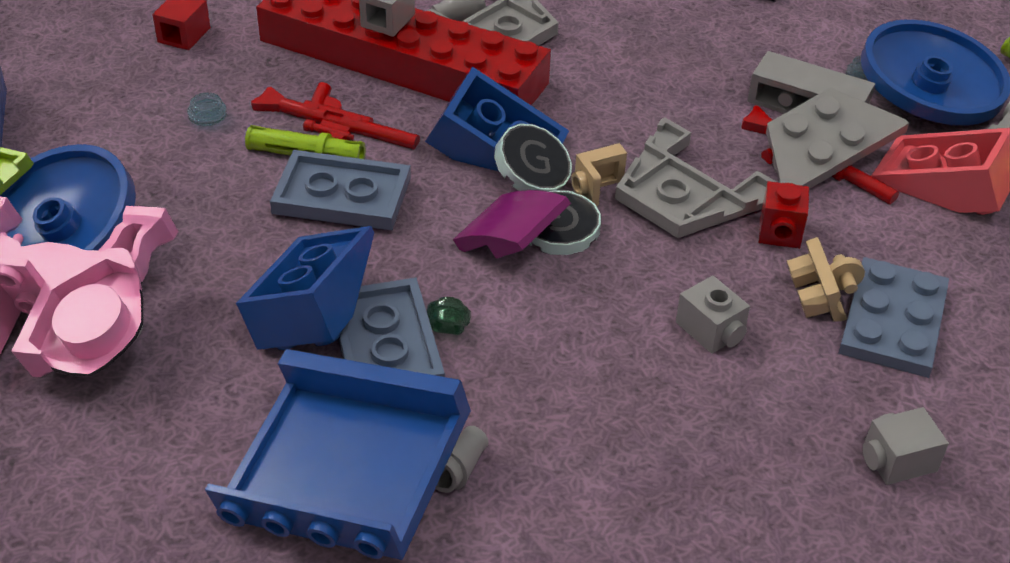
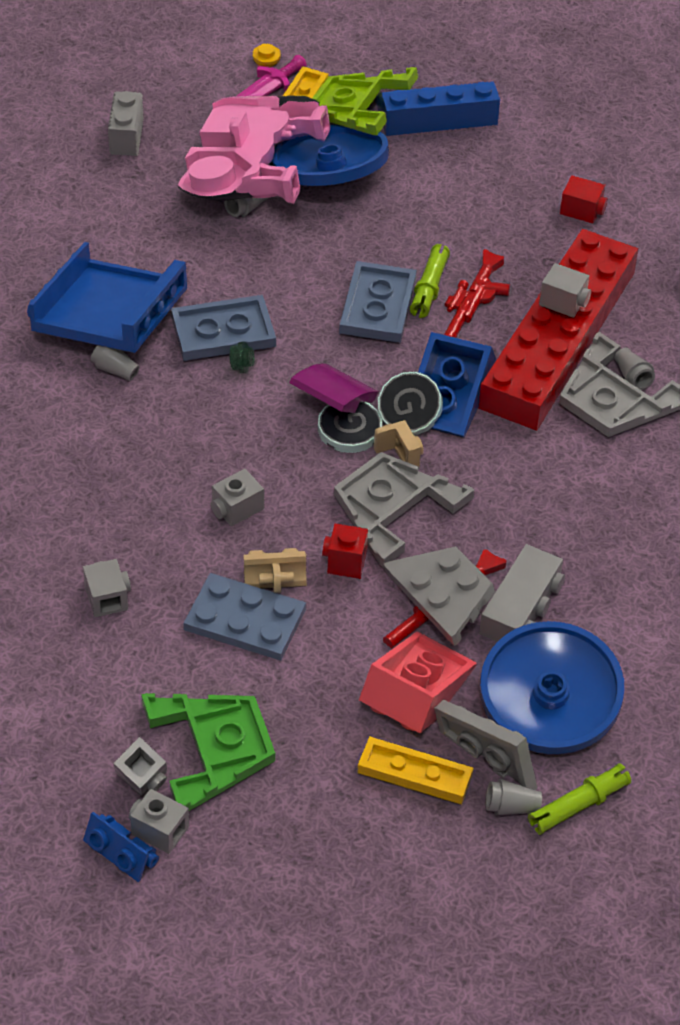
camera: 90 degrees right, 5 degrees up
(206, 109) = (472, 225): clear light blue plate -> none
(308, 290) = (251, 276): blue slope -> none

